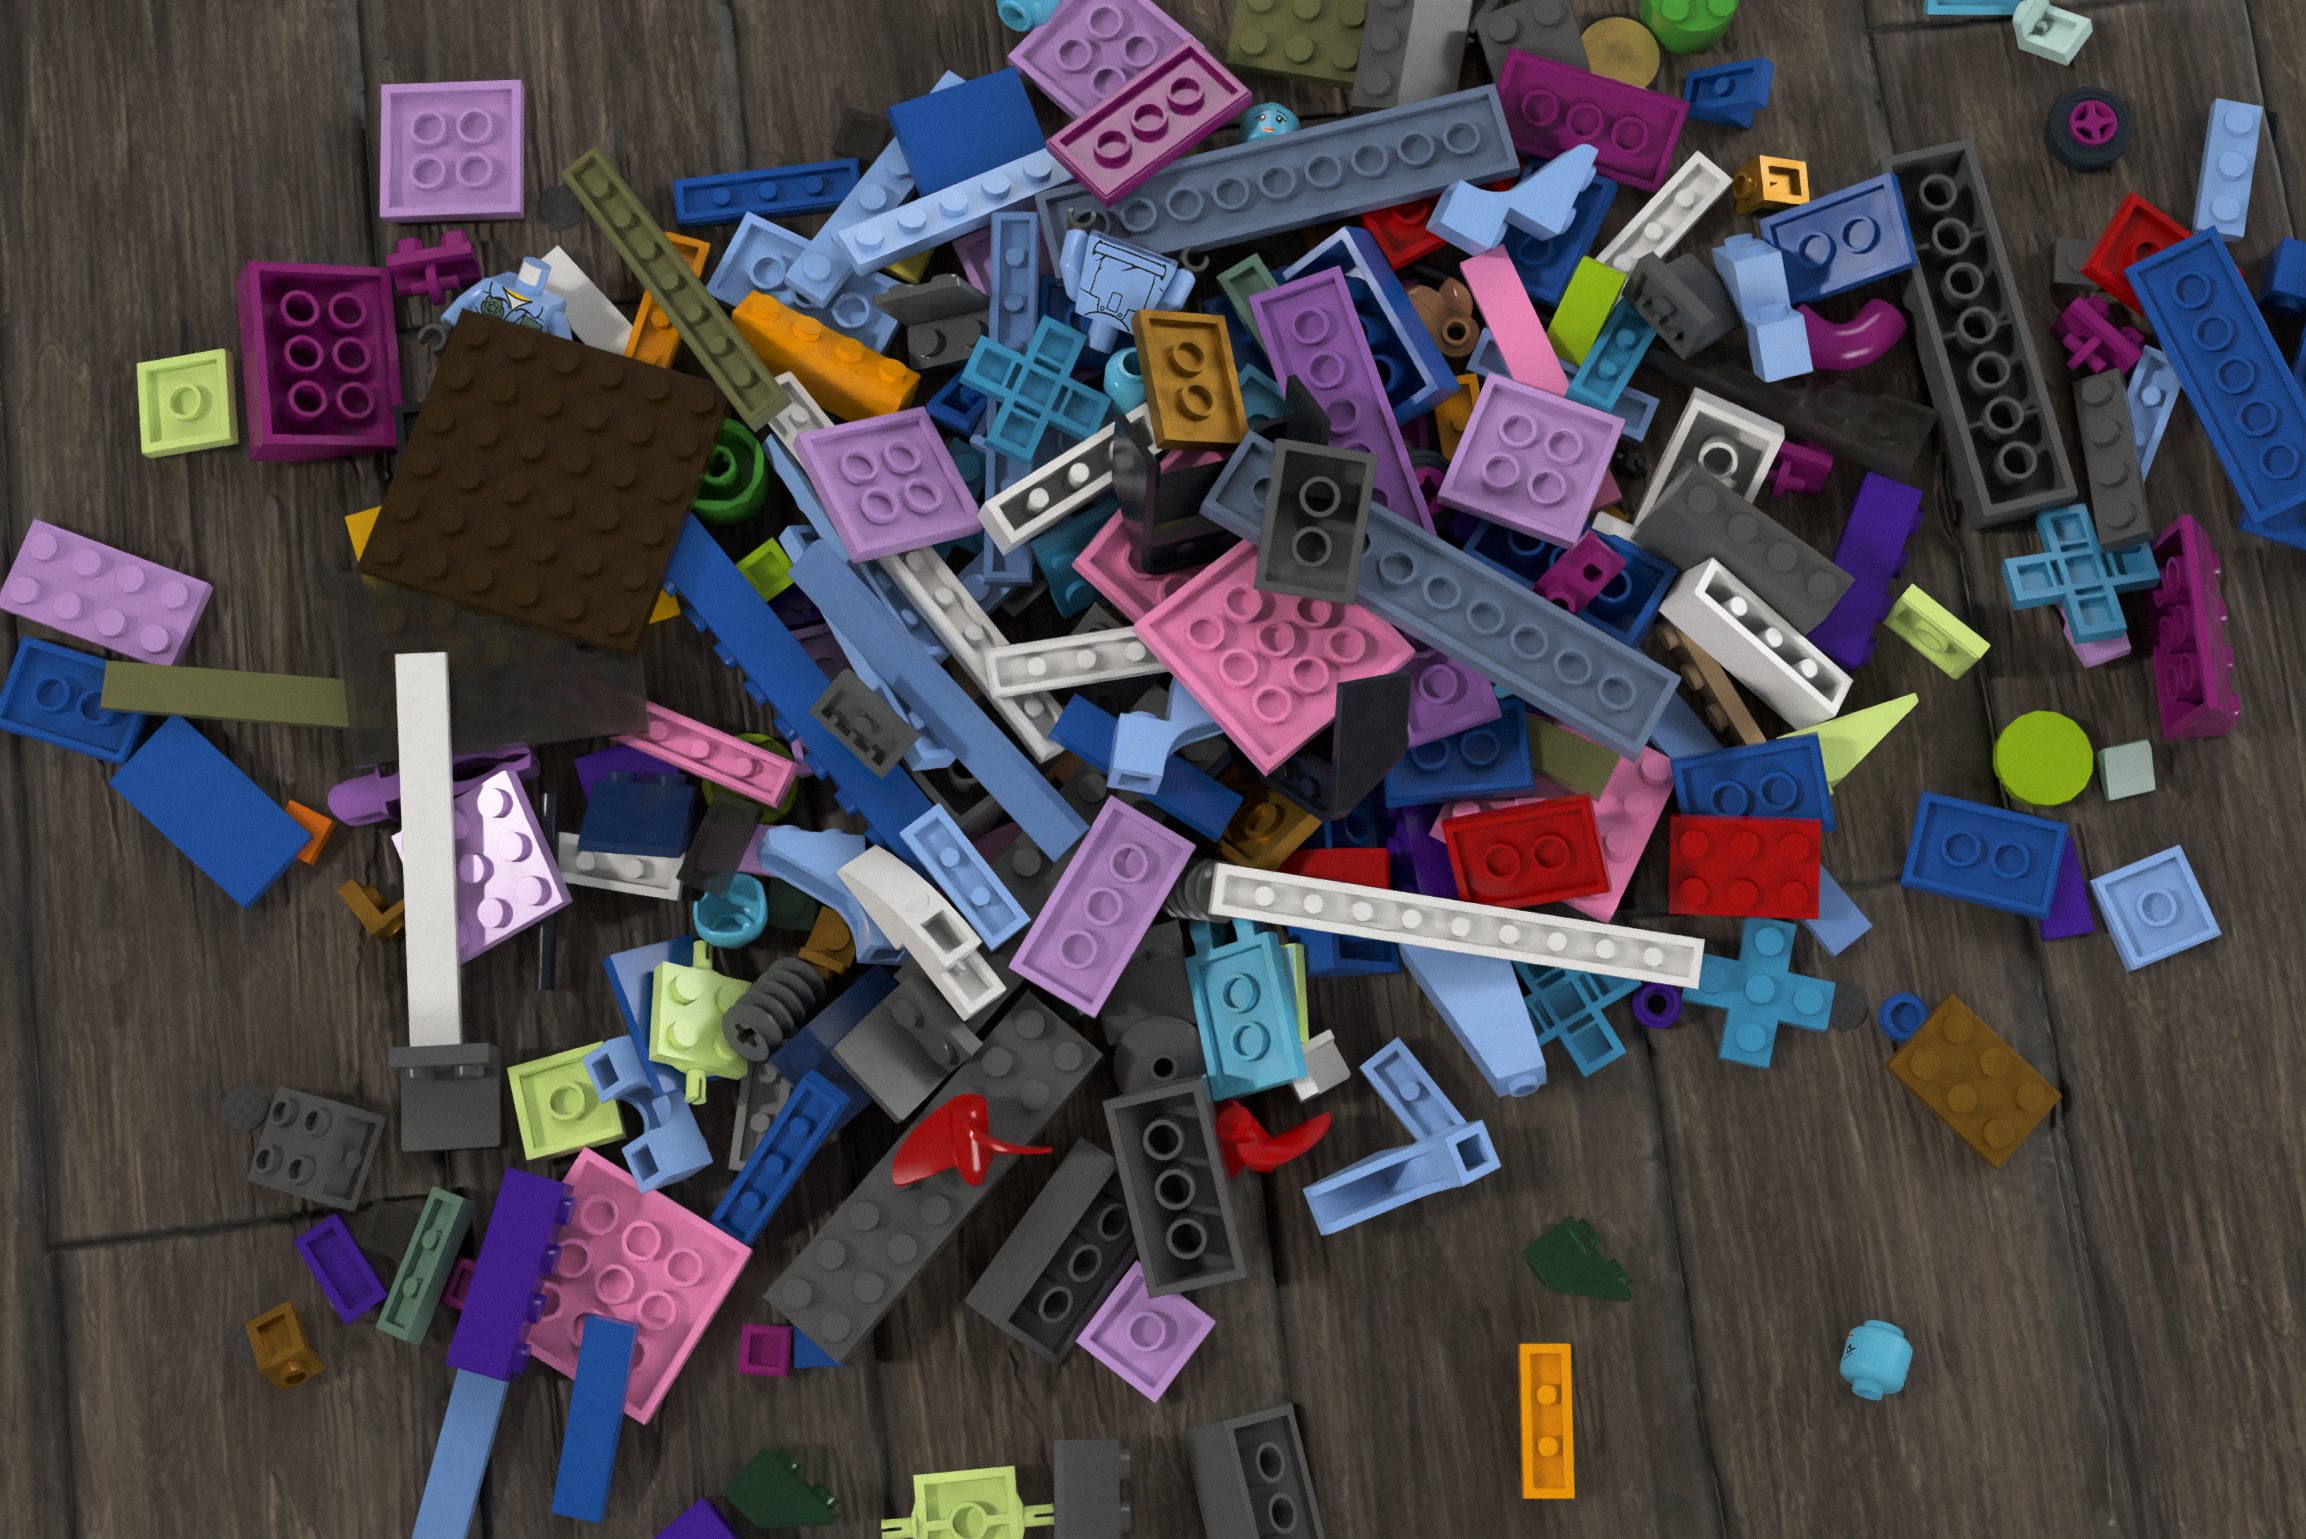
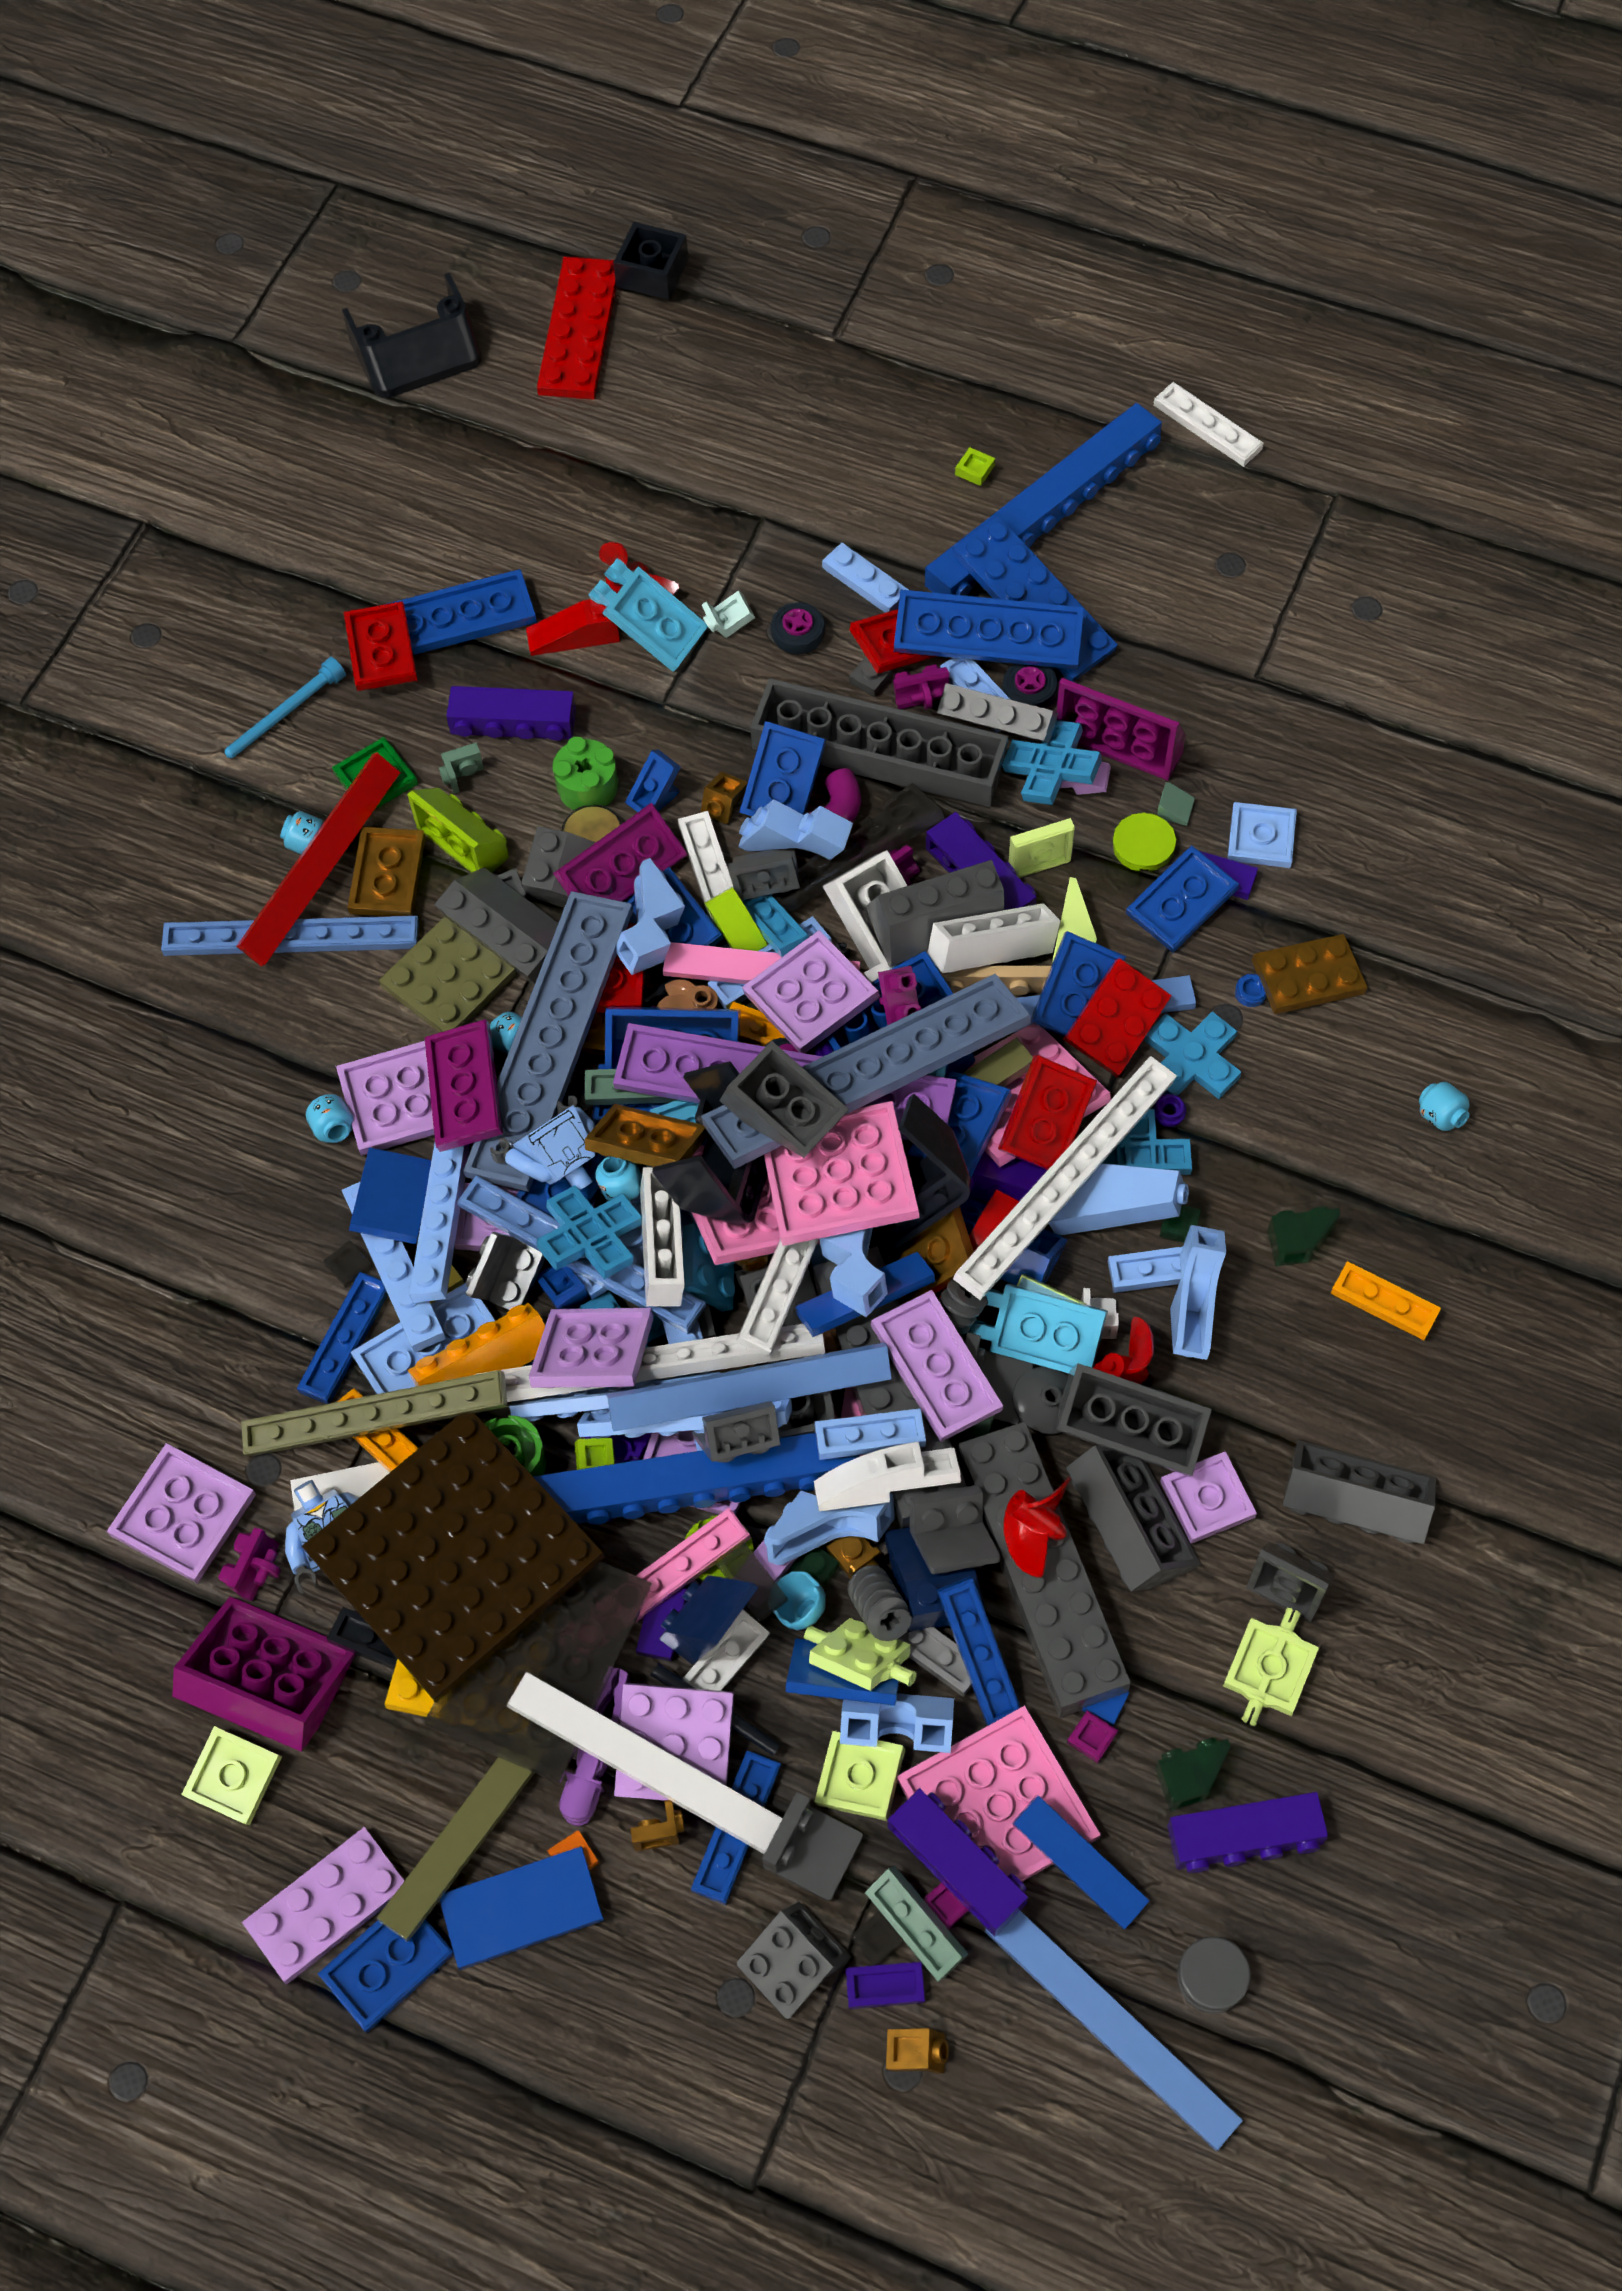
camera: 60 degrees left, 15 degrees down
(384, 1001) = (726, 1853): none -> blue tile
(1499, 1111) = (1178, 1227): none -> clear green plate
(2198, 463) = (1021, 678): none -> black wheel

